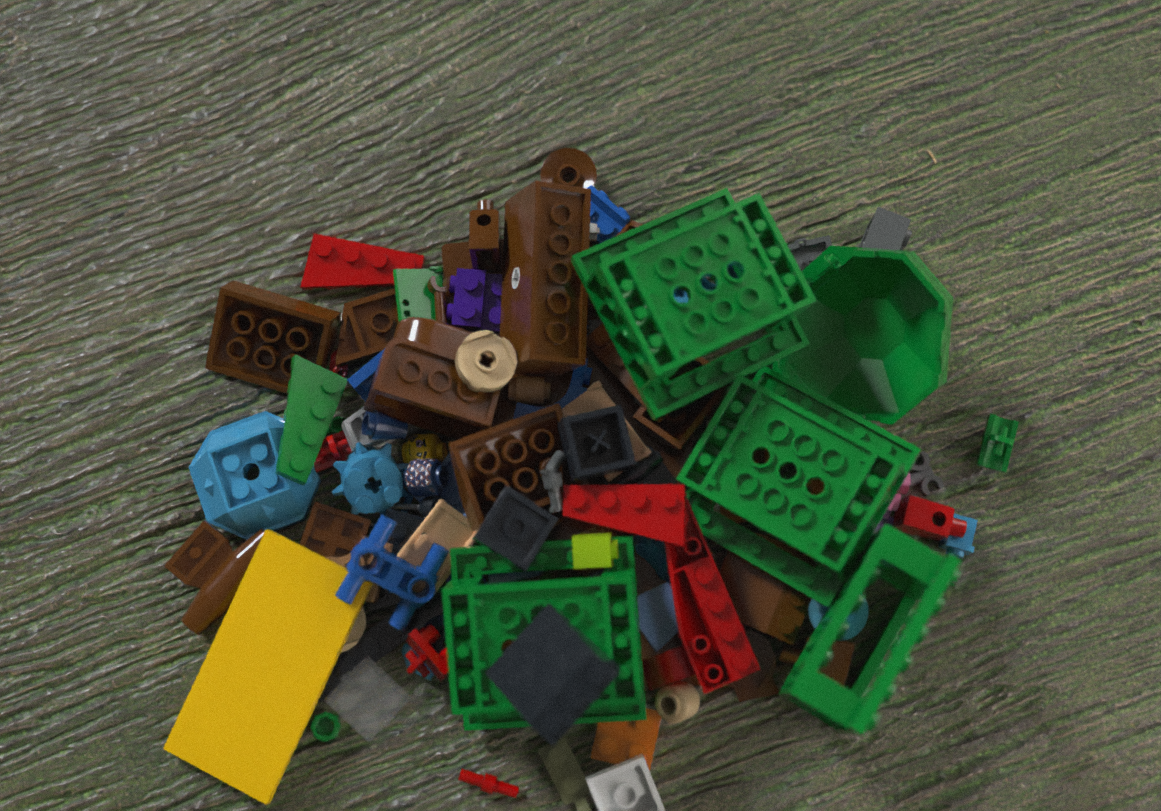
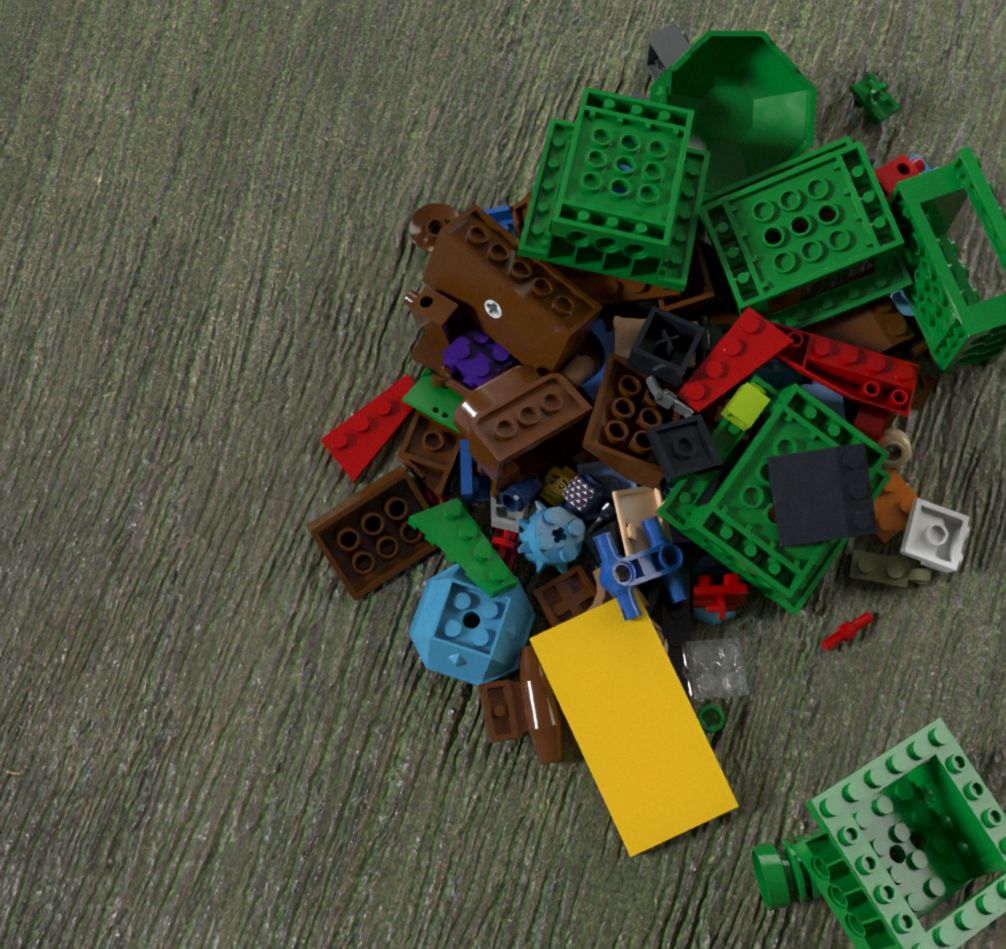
camera: 50 degrees left, 5 degrees down
(478, 376) = (537, 386): tan plate -> none

